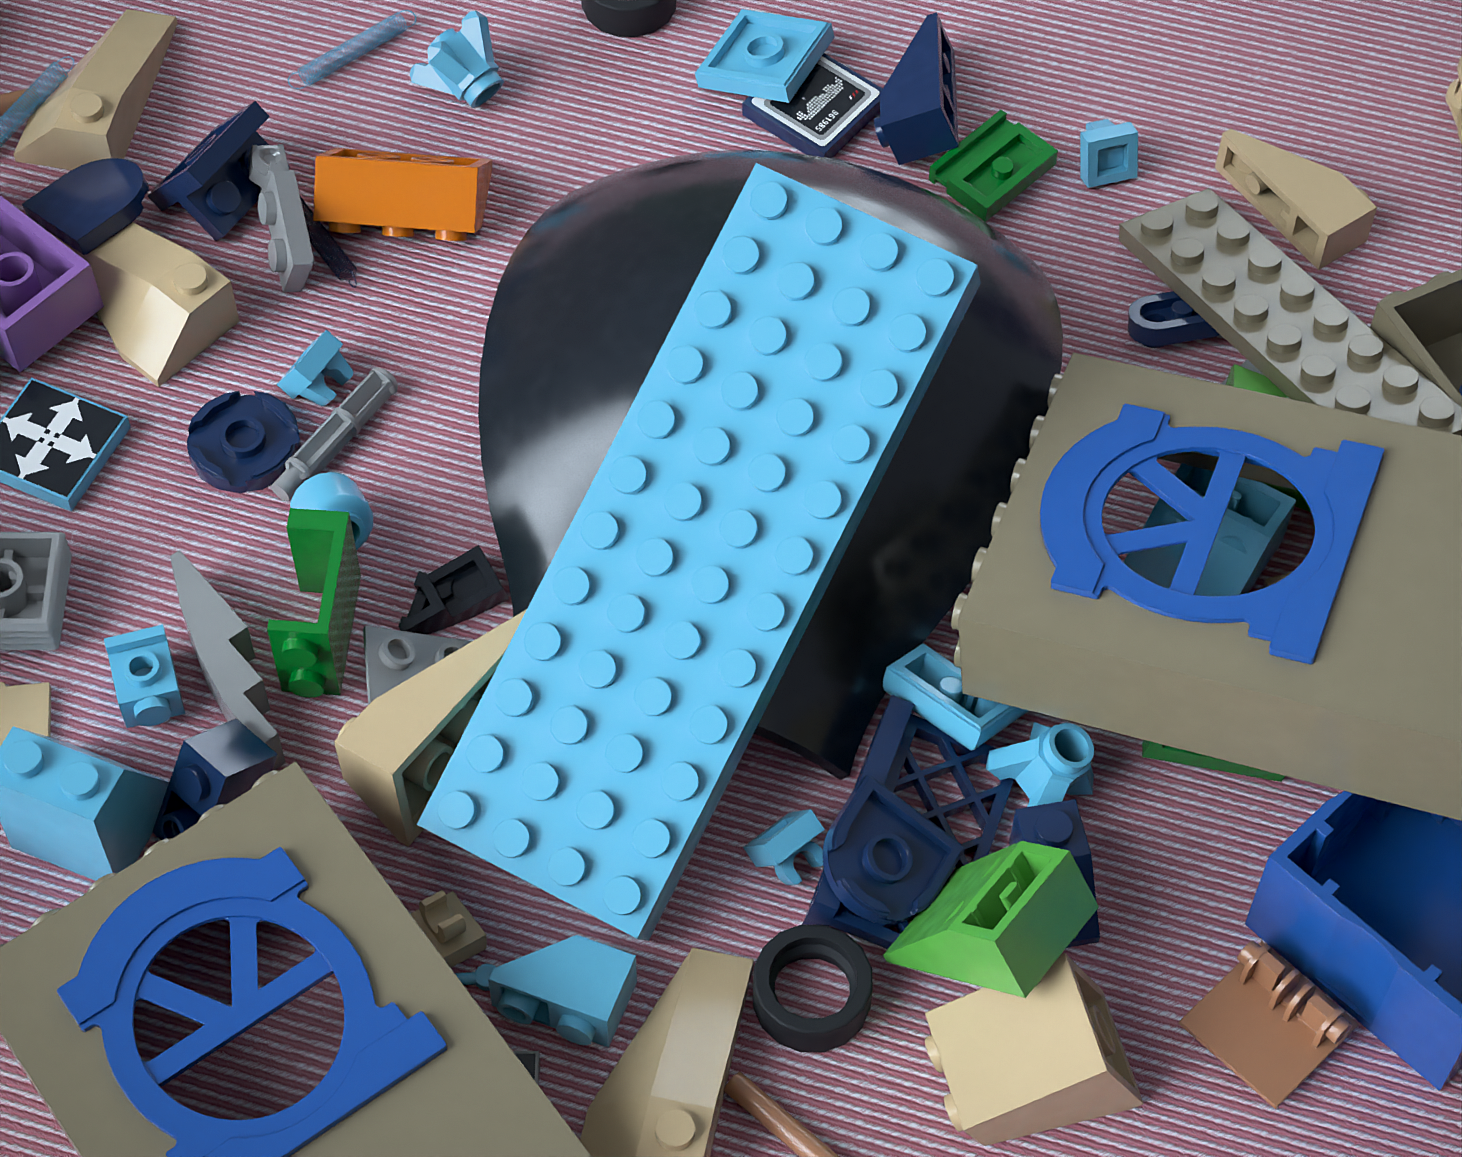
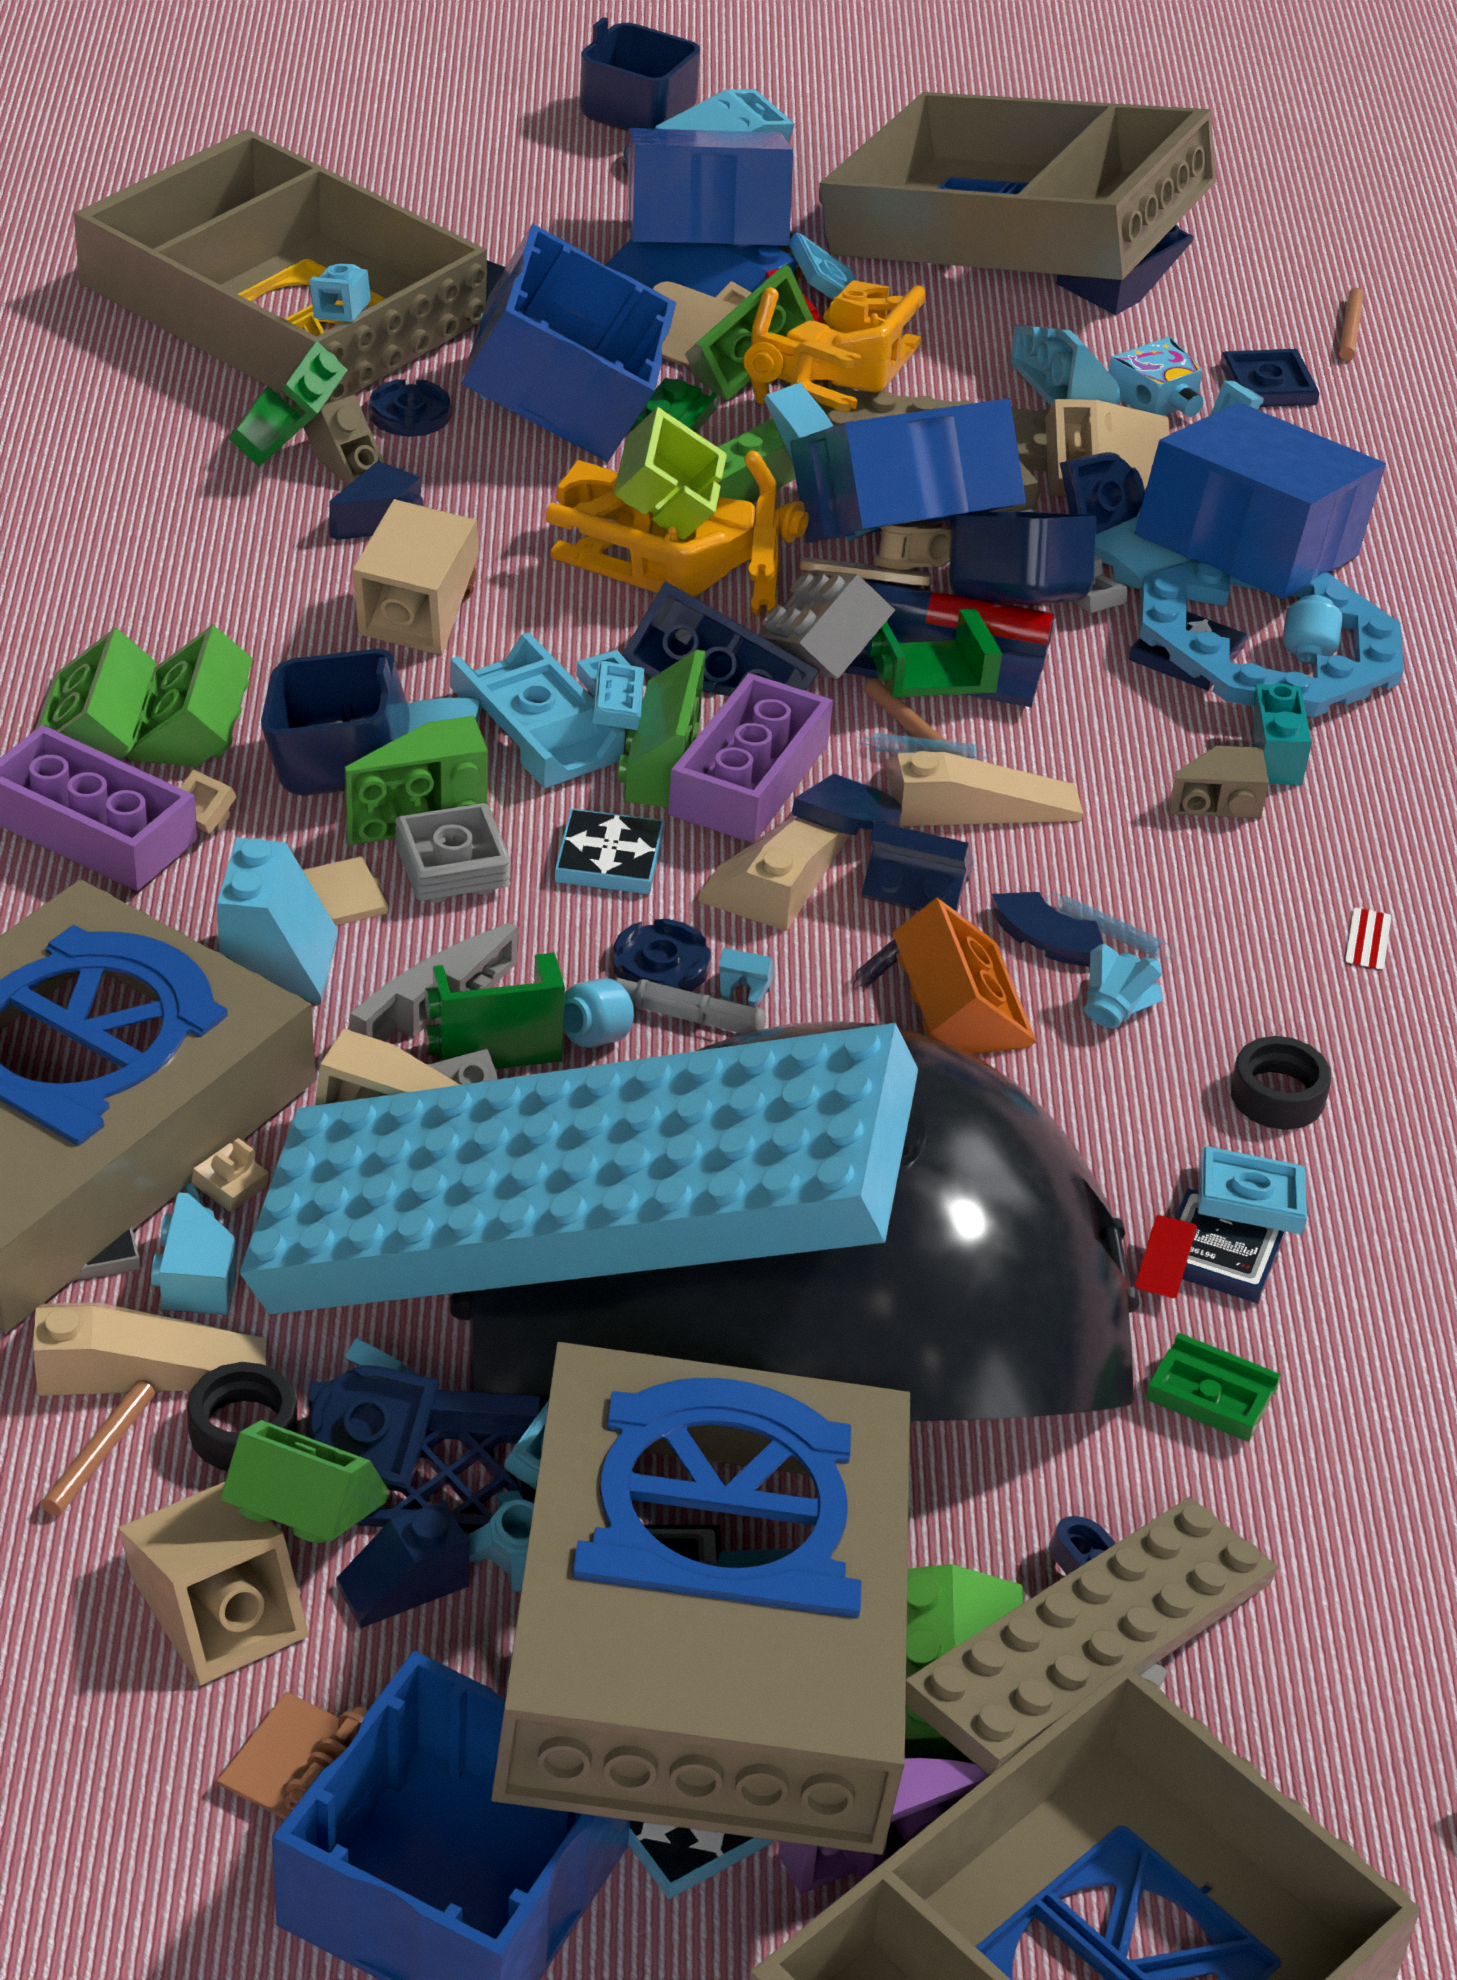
camera: 70 degrees right, 15 degrees down
(144, 676) = (402, 945): medium azure brick -> none
(211, 772) = (326, 988): dark blue slope -> none
(283, 212) = (885, 913): light grey hinge -> none
(351, 92) = (1031, 920): none -> dark blue tile
(820, 140) = (1166, 1256): none -> red sticker
(921, 98) = (1268, 1309): dark blue slope -> none
(1108, 153) = (1273, 1470): medium azure tile -> none
(1300, 198) = (1294, 1655): tan slope -> none

